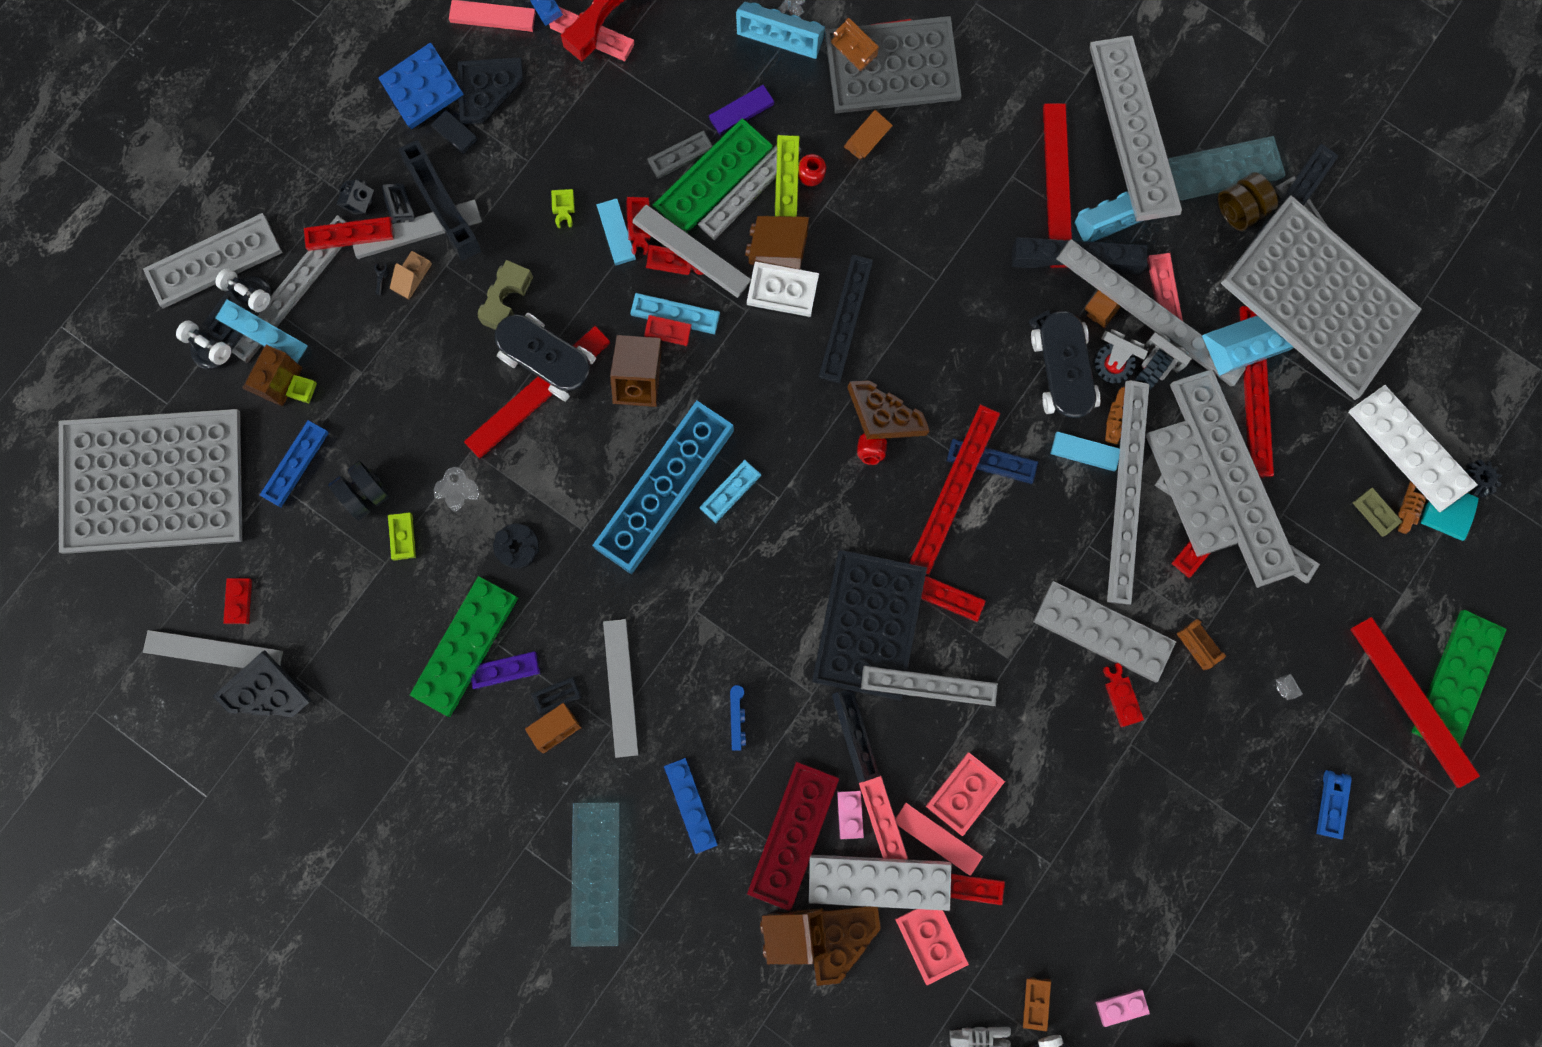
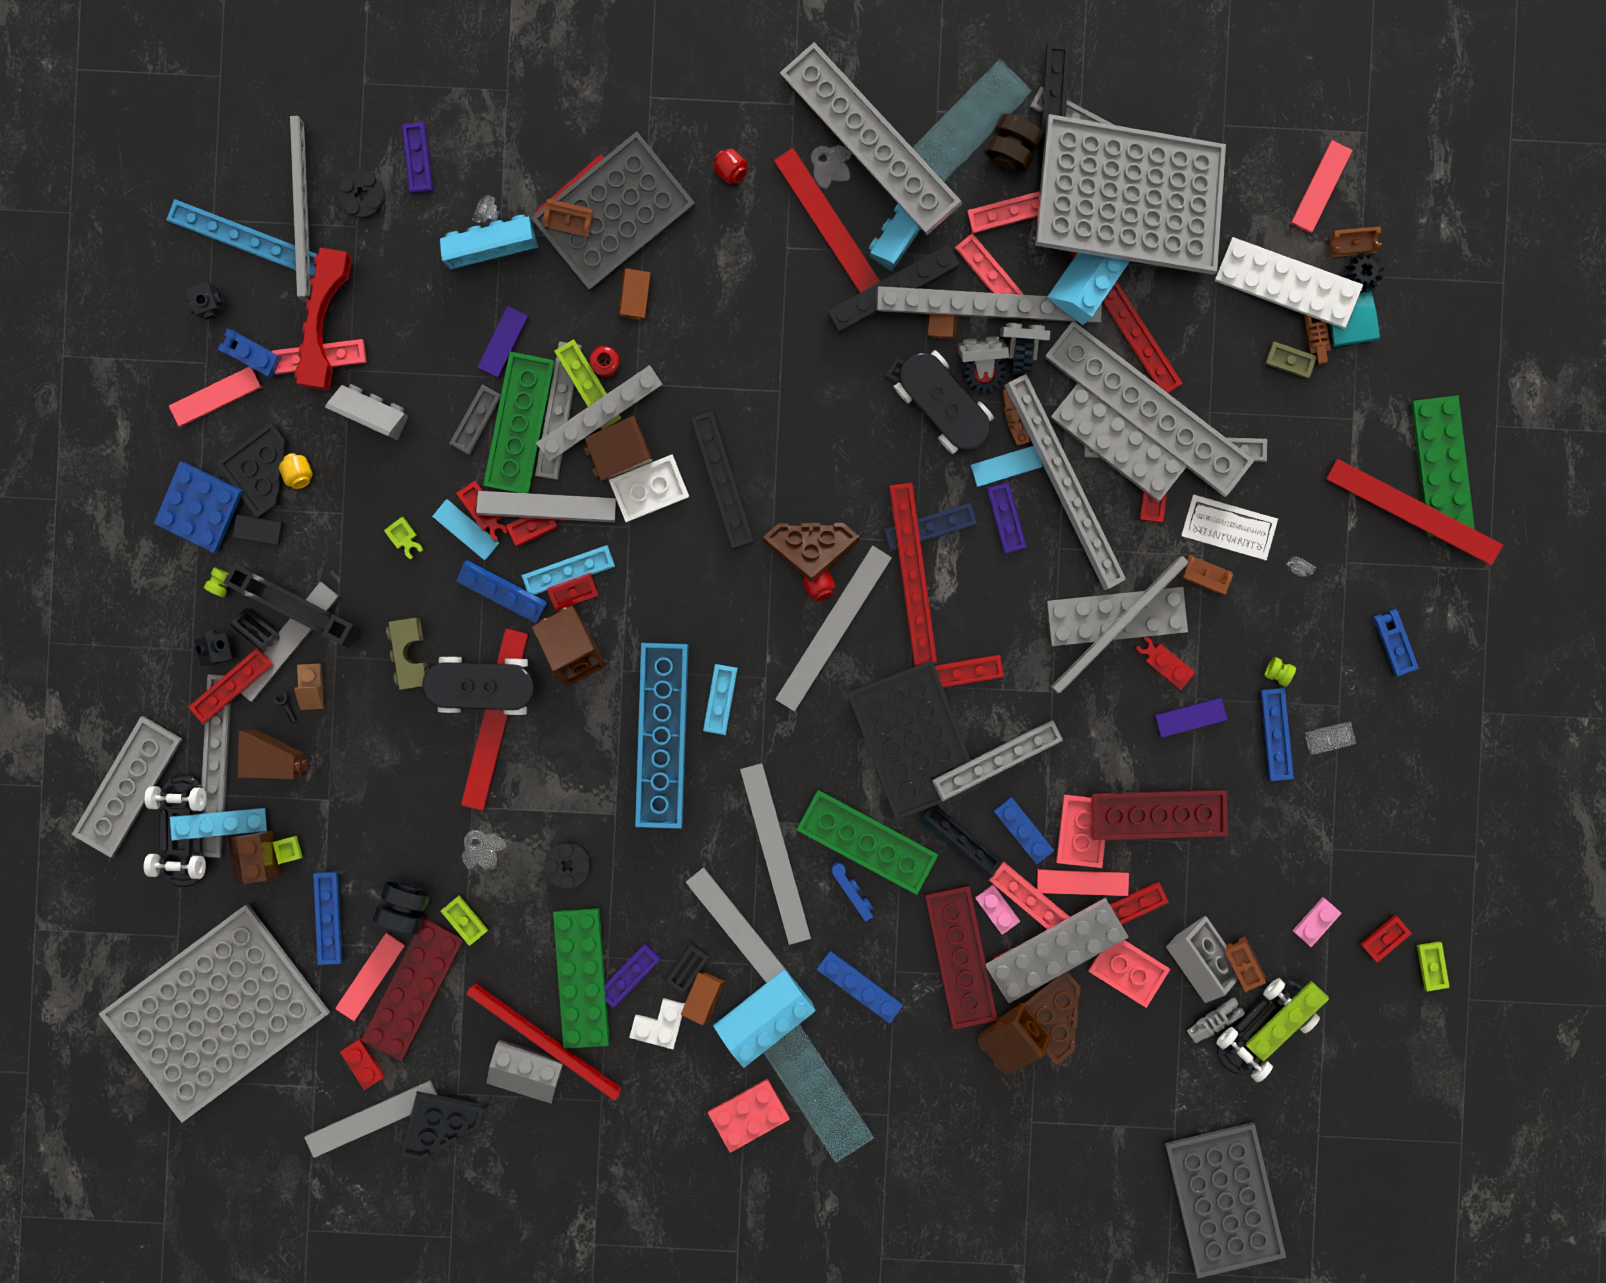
camera: 30 degrees left, 10 degrees up
(294, 533) = (370, 976): none -> coral tile
(321, 566) = (412, 989): none -> dark red plate
(336, 305) = (268, 758): none -> reddish brown slope
(364, 693) = (524, 1071): none -> light grey slope
(389, 150) = (215, 584): none -> lime wheel
(398, 679) = (544, 1041): none -> red tile
(498, 734) = (661, 1031): none -> white plate
(514, 105) = (295, 471): none -> yellow head
(524, 855) = (748, 1115): none -> coral plate
(592, 778) = (764, 1018): none -> medium azure slope
(601, 95) = (368, 411): none -> light grey slope
(611, 295) = (501, 591): none -> blue plate
(692, 647) = (775, 853): none -> light grey tile
(776, 685) = (867, 842): none -> green plate
(781, 205) = (599, 413): none -> light grey plate
(860, 492) = (833, 628): none -> light grey tile
(914, 761) = (1023, 830): none -> blue plate
(1003, 976) = (1203, 959): none -> light grey slope
(1007, 87) = (730, 166): none -> red head
(1040, 821) = (1159, 814): none -> dark red plate
(1059, 493) = (1006, 518): none -> dark purple tile
(1088, 137) = (833, 168): none -> clear plate
(1104, 636) = (1142, 601): none -> light grey tile
(1117, 756) = (1190, 717): none -> dark purple tile
(1183, 818) = (1276, 734): none -> blue plate
(1204, 252) = (1004, 212): none -> coral plate
(1218, 765) = (1279, 671): none -> lime wheel
(1228, 851) = (1330, 738): none -> clear plate
(1244, 618) = (1229, 527): none -> white sticker
(1482, 390) = (1321, 186): none -> coral tile
(1486, 447) = (1353, 241): none -> dark orange hinge

